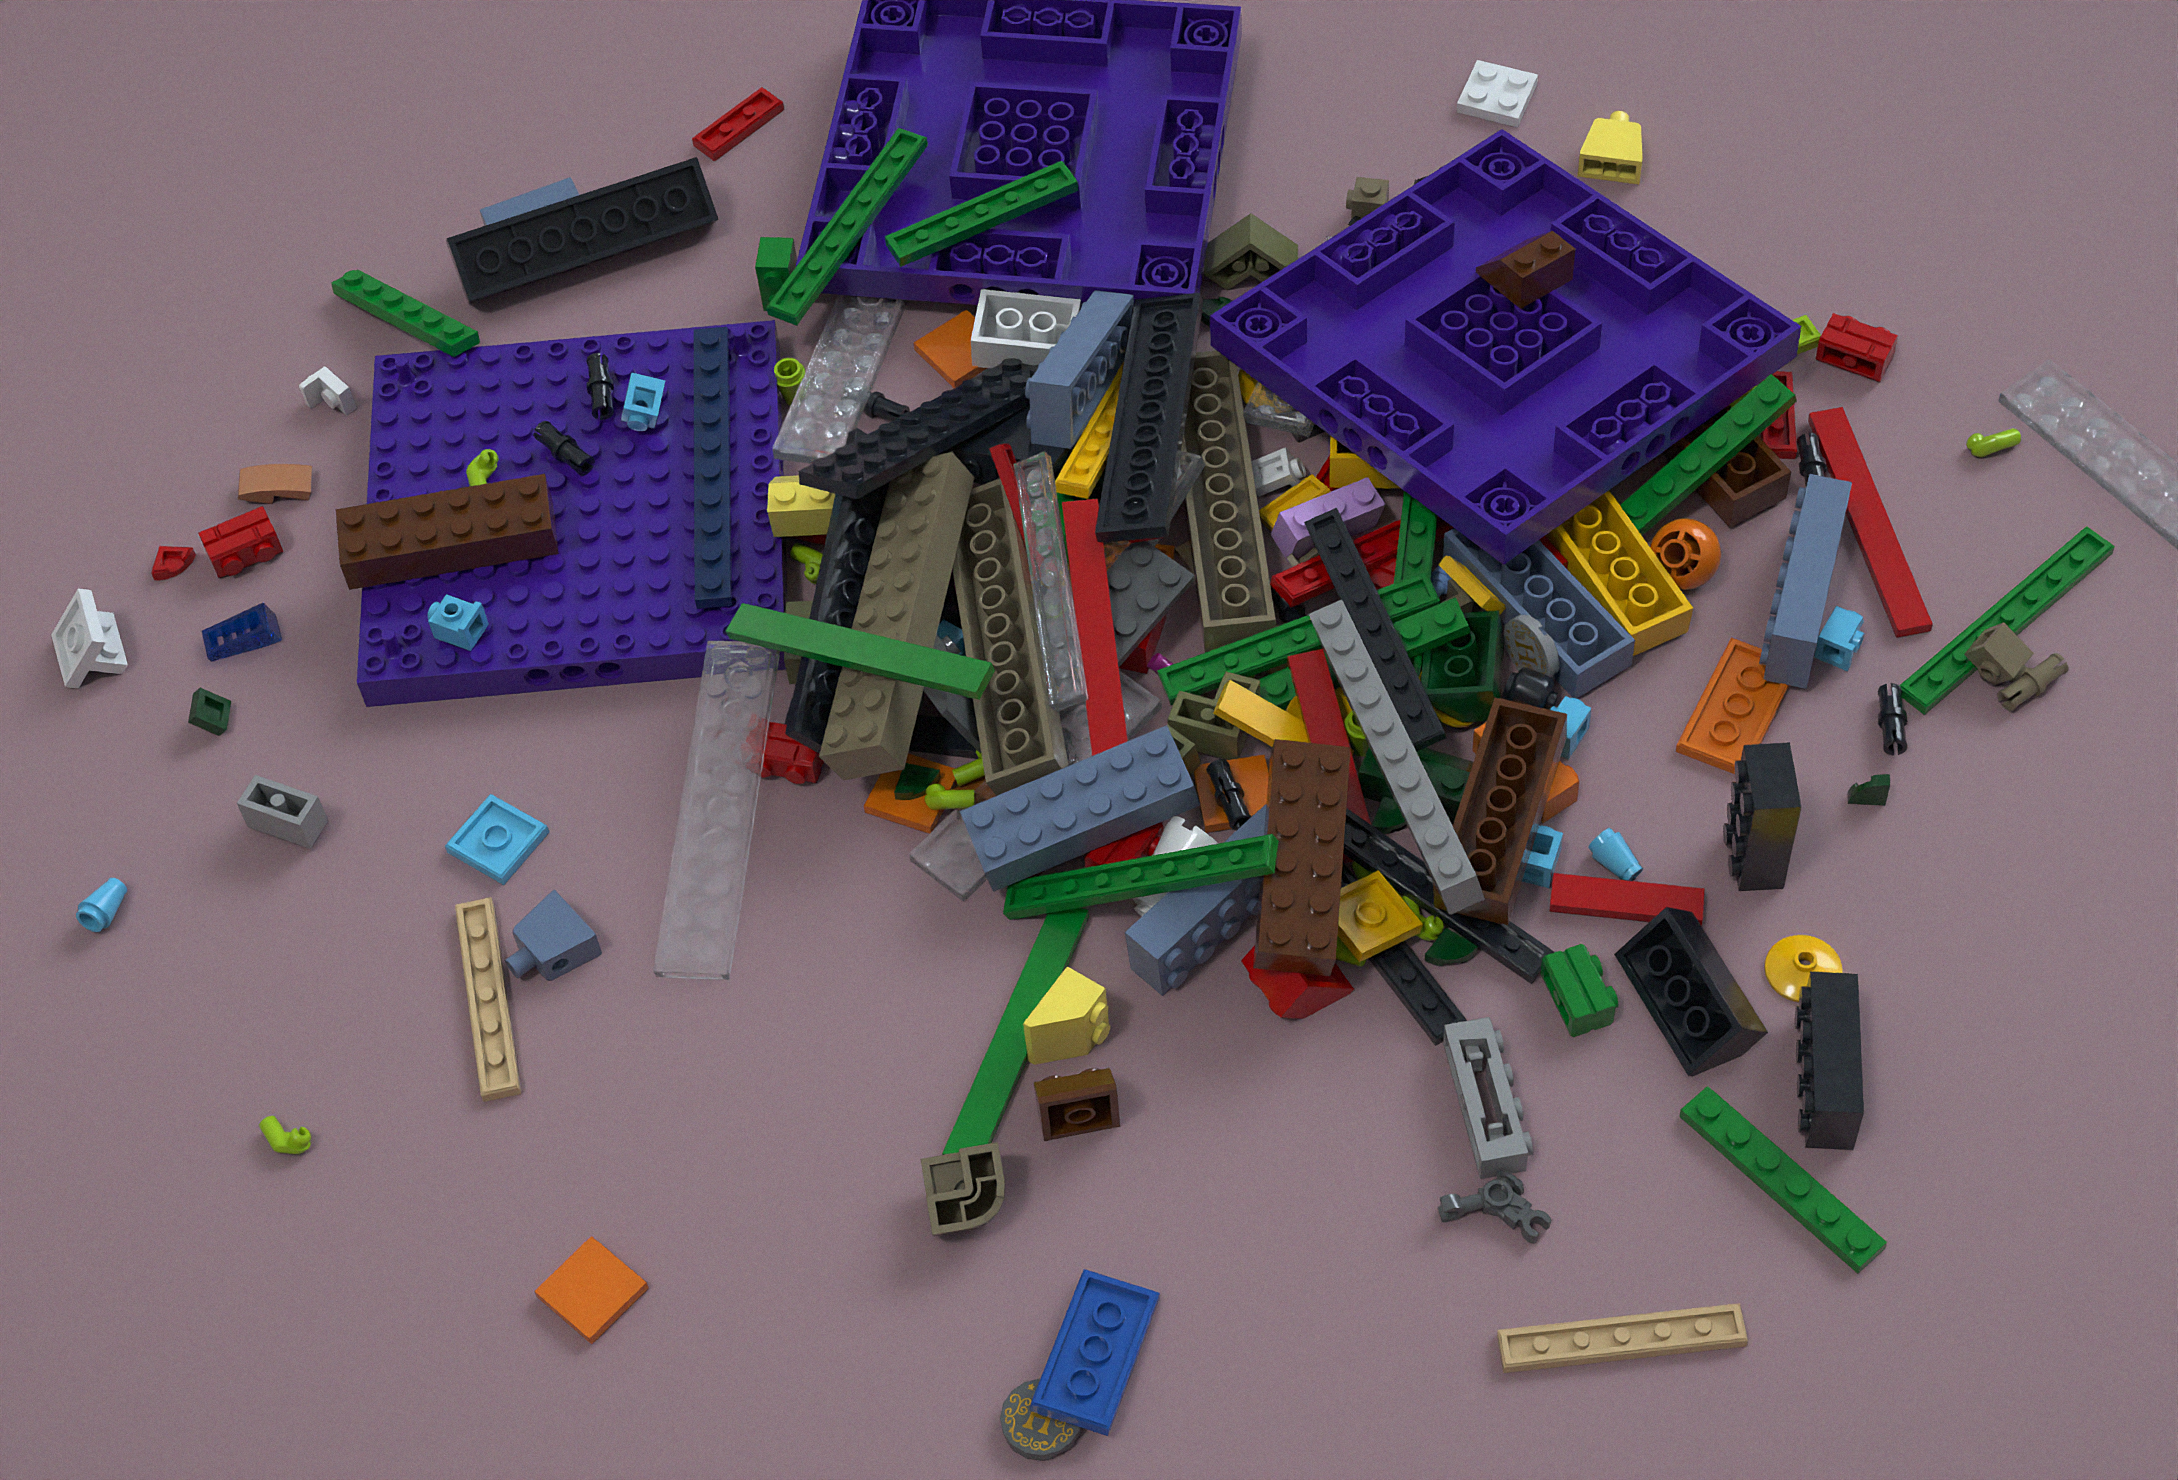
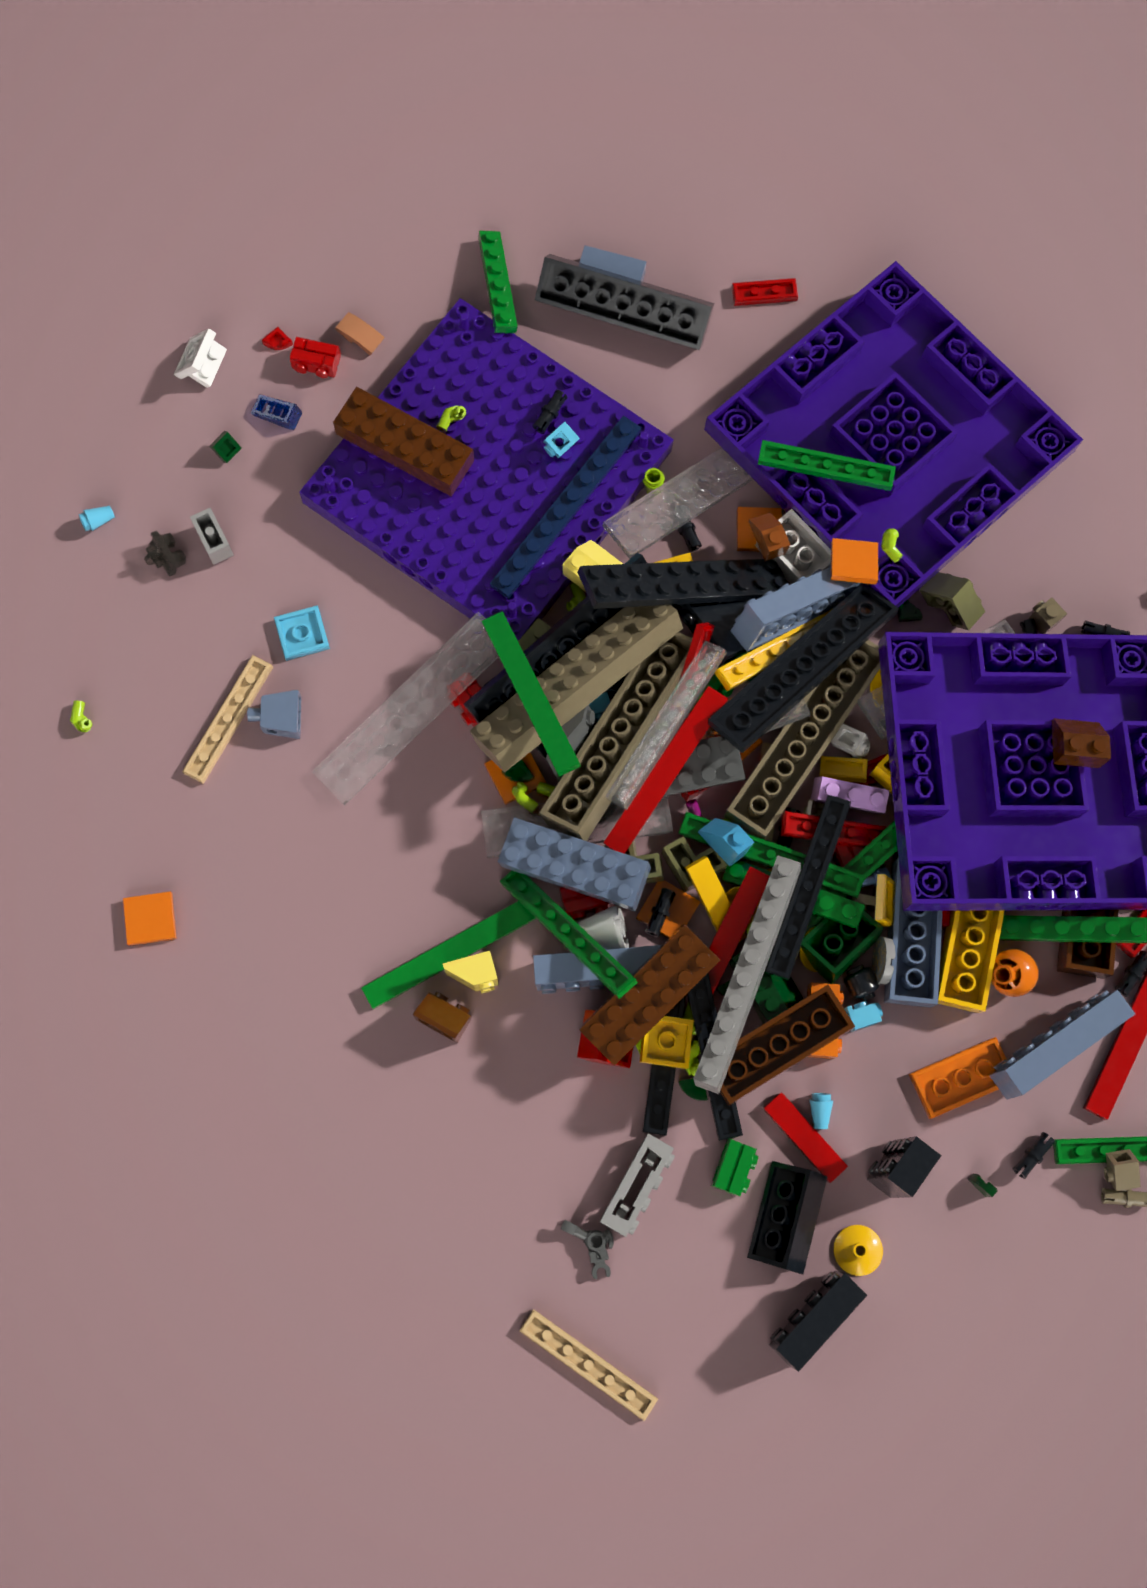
camera: 30 degrees right, 20 degrees up
(233, 879) = (160, 554): none -> clear smoke hips
(328, 388) = (426, 294): white bracket -> none
(457, 621) = (369, 505): medium azure brick -> none
(564, 448) = (502, 435): black pin -> none
(774, 265) = (698, 408): green brick -> none
(847, 227) = (752, 415): green tile -> none
(963, 1188) = (348, 1020): dark tan brick -> none
(985, 326) = (769, 536): none -> dark orange slope
(1032, 1433) = (290, 1165): dark grey tile -> none
(1095, 1352) = (341, 1154): blue tile -> none
(1106, 279) = (854, 561): none -> orange tile
(1129, 240) = (888, 544): none -> lime arm
(1235, 651) = (726, 839): none -> dark azure slope
(1543, 857) = (793, 1076): medium azure brick -> none
(1783, 1179) = (740, 1353): green plate -> none
(1840, 638) = (1052, 1088): medium azure brick -> none

